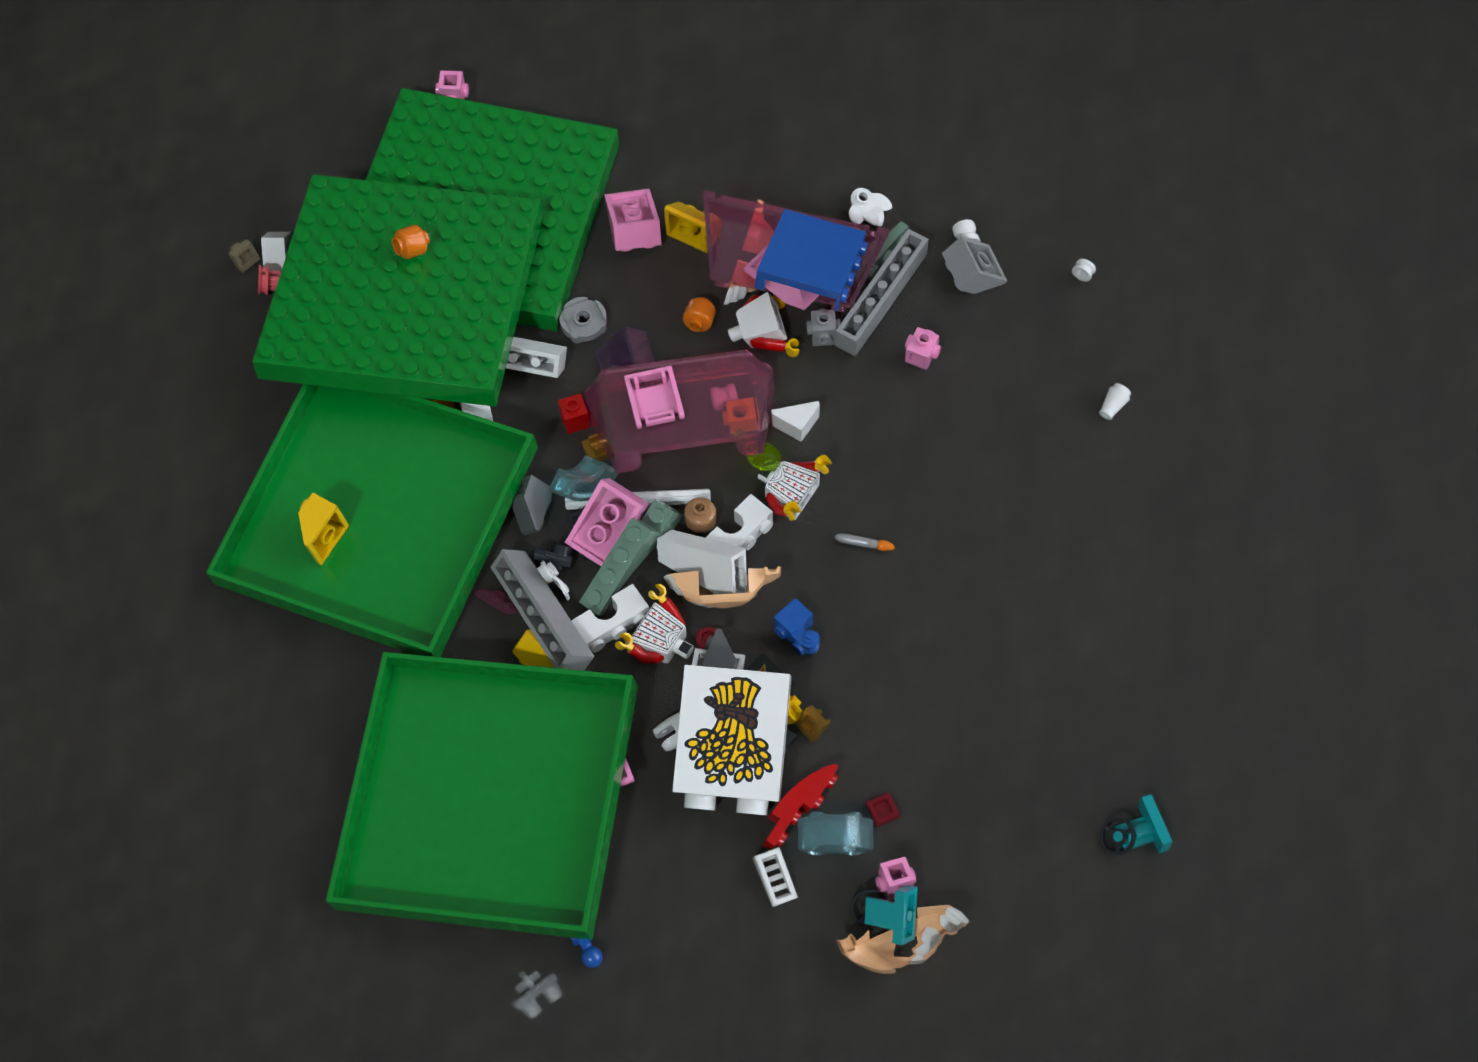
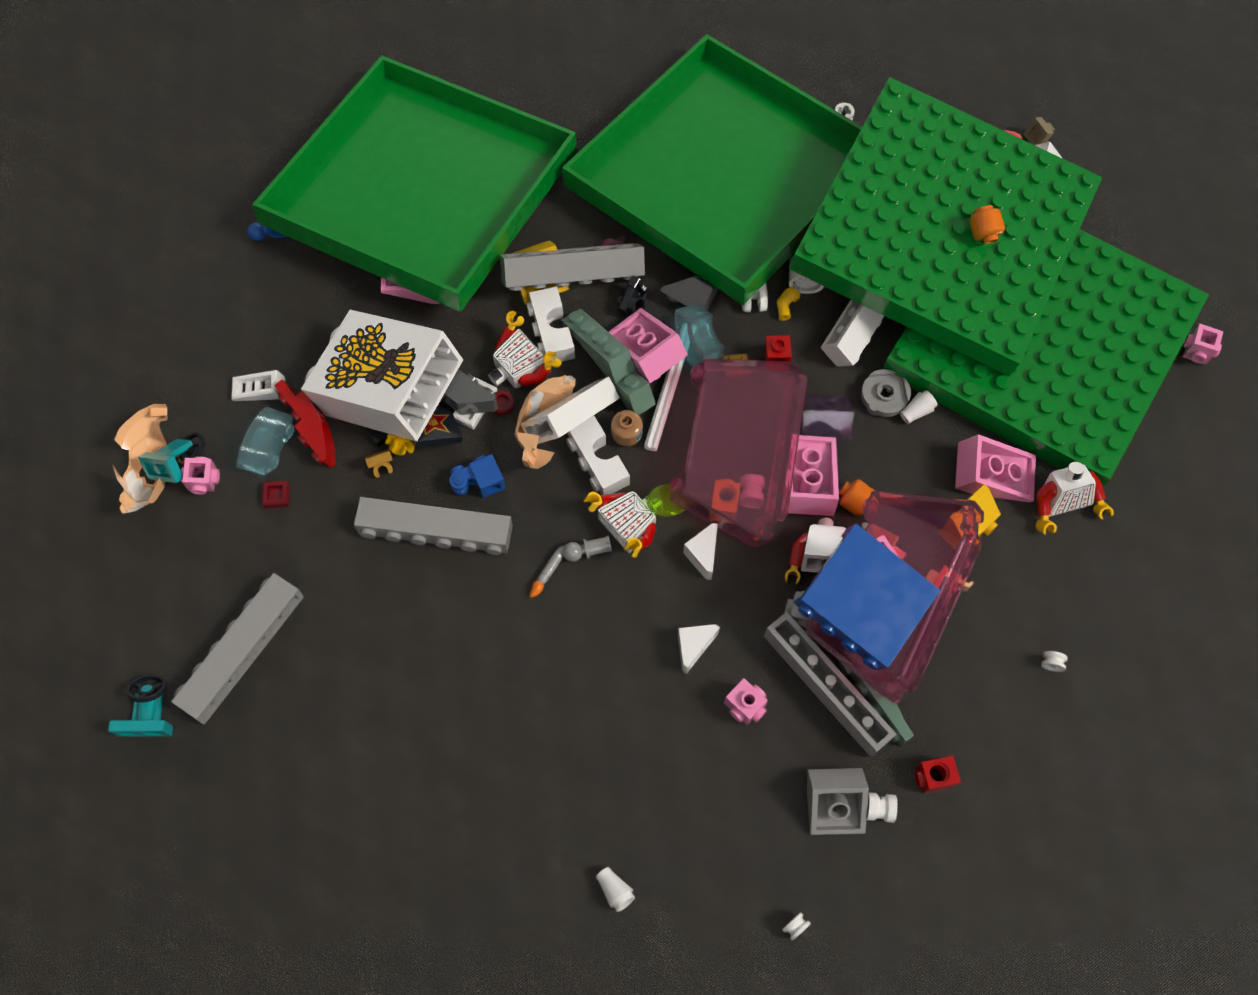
camera: 105 degrees right, 5 degrees up
(263, 439) = (845, 108): none -> white bush
(321, 526) = (715, 113): yellow slope -> none
(520, 424) = (783, 302): none -> yellow arm
(546, 986) = (249, 181): clear hips -> none
(549, 574) = (605, 288): white plate -> none
(587, 287) = (920, 406): none -> white cone
(638, 162) = (1067, 491): none -> torso
(654, 403) = (748, 407): bright pink container -> none
(692, 341) = (815, 477): none -> bright pink slope
(793, 145) = (1054, 661): none -> white bush
(838, 524) = (573, 551): none -> light grey pin
(861, 650) = (433, 525): none -> light grey brick
(869, 210) = (945, 715): white plate -> none
(887, 402) = (694, 642): none -> white slope
(922, 203) = (947, 769): none -> red brick
(1047, 772) = (238, 648): none -> light grey brick

